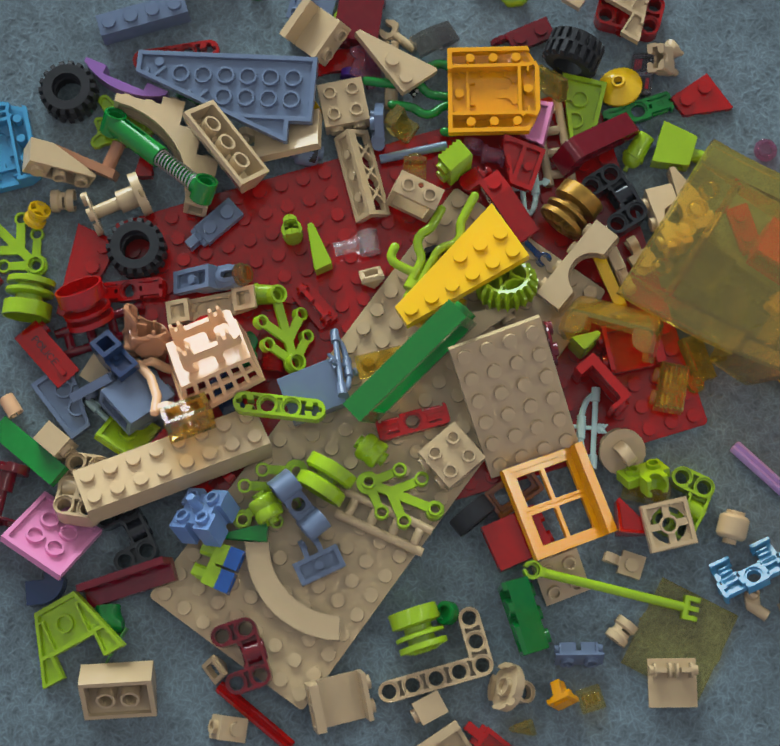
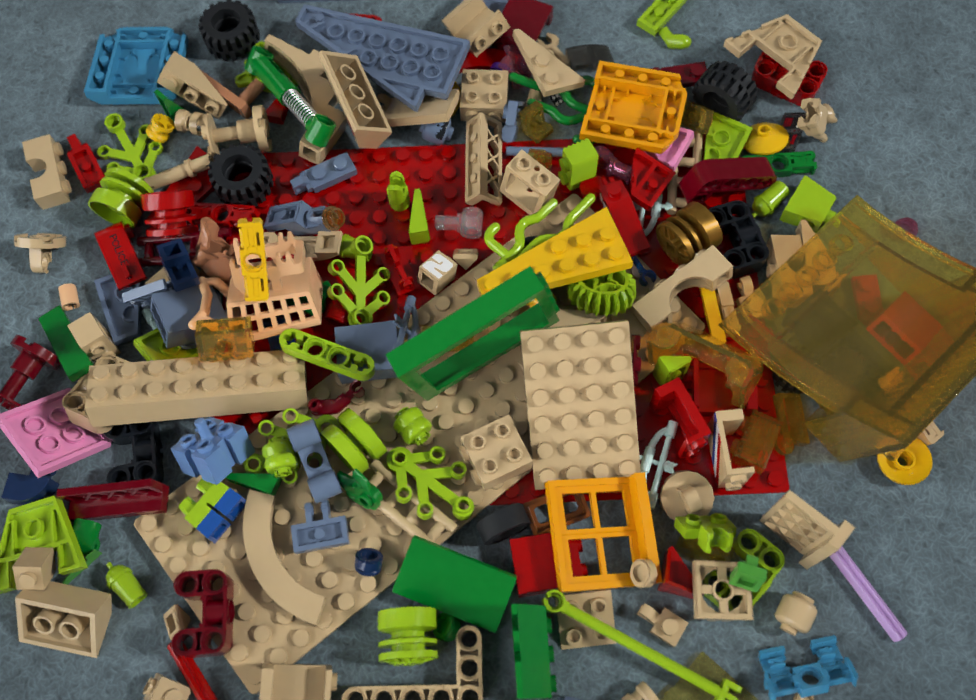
camera: 15 degrees right, 10 degrees down
(40, 190) = (169, 106): none -> green piece
(80, 253) = (177, 173): none -> tan pin
(82, 657) = (34, 568): none -> tan brick
(101, 73) = (268, 27): medium lavender slope -> none
(160, 649) = (125, 585): none -> lime piece
(198, 332) = (253, 243): none -> yellow piece
(295, 449) = (335, 406): none -> dark red arm
(344, 519) = (360, 489): none -> green plate
(351, 300) = (437, 272): none -> tan brick
(367, 577) = (368, 562): none -> dark blue tile
(397, 428) = (447, 409): red piece -> none
(445, 576) = (454, 583): none -> green slope
(600, 527) = (643, 573): none -> tan tile
(640, 404) = (724, 424): none -> tan panel
(686, 507) = (748, 574): none -> bright green tile
(700, 98) = (846, 166): red wing -> none
(726, 458) = (805, 529): none -> tan fence

